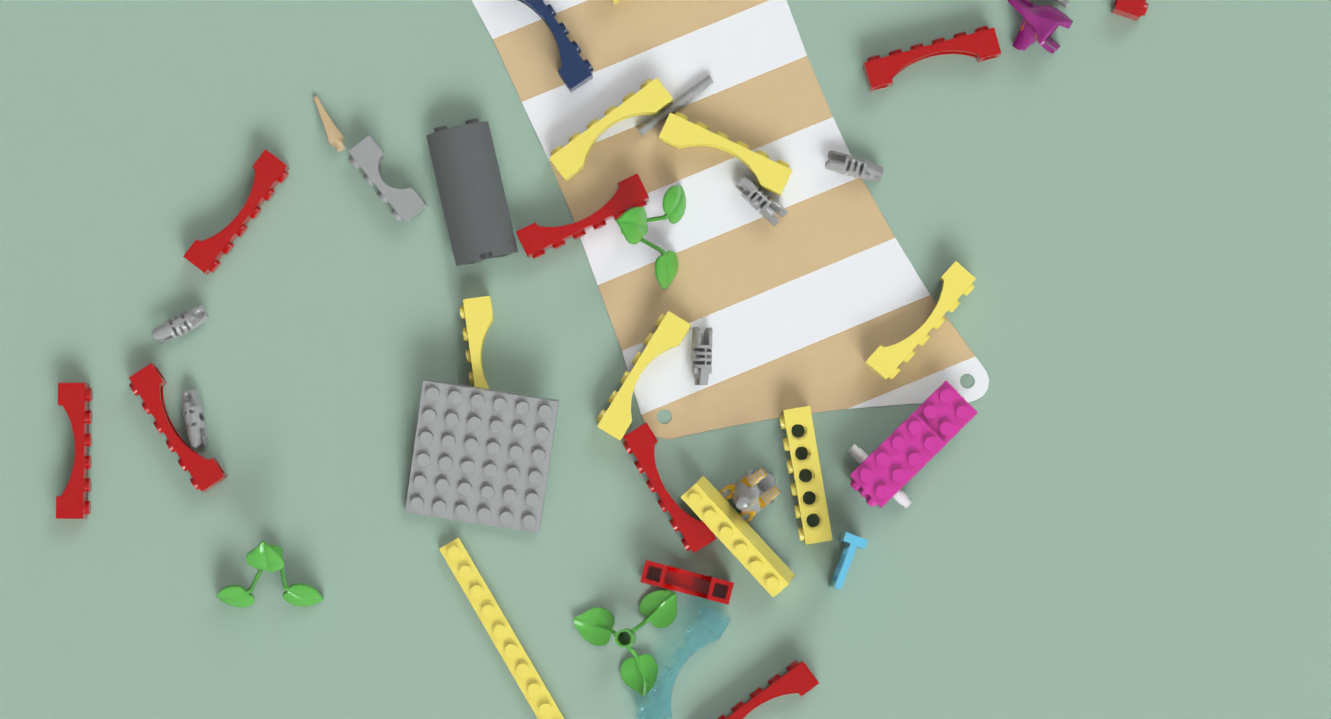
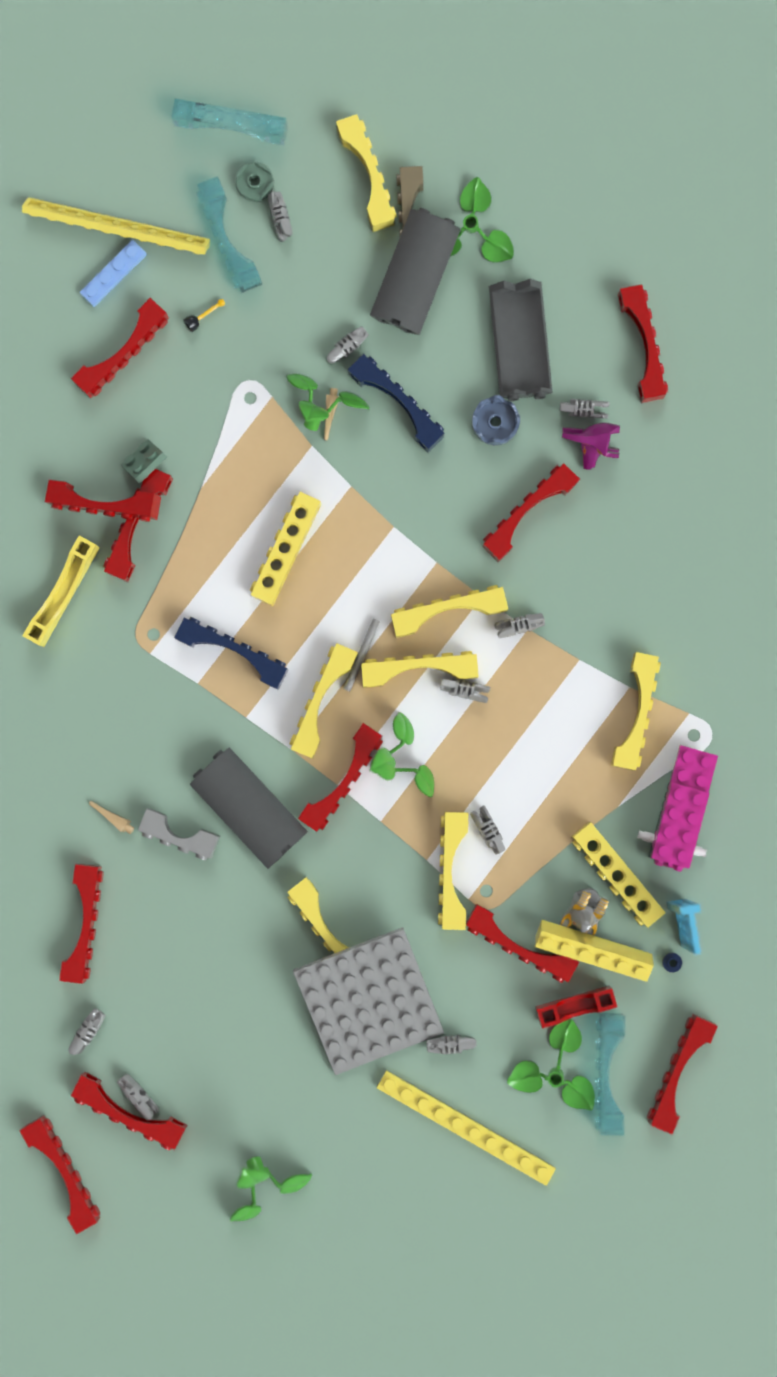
camera: 25 degrees left, 0 degrees up
(538, 548) = (450, 1044): none -> light grey hinge
(803, 596) = (667, 958): none -> dark blue plate
(834, 124) = (488, 602): none -> light yellow arch

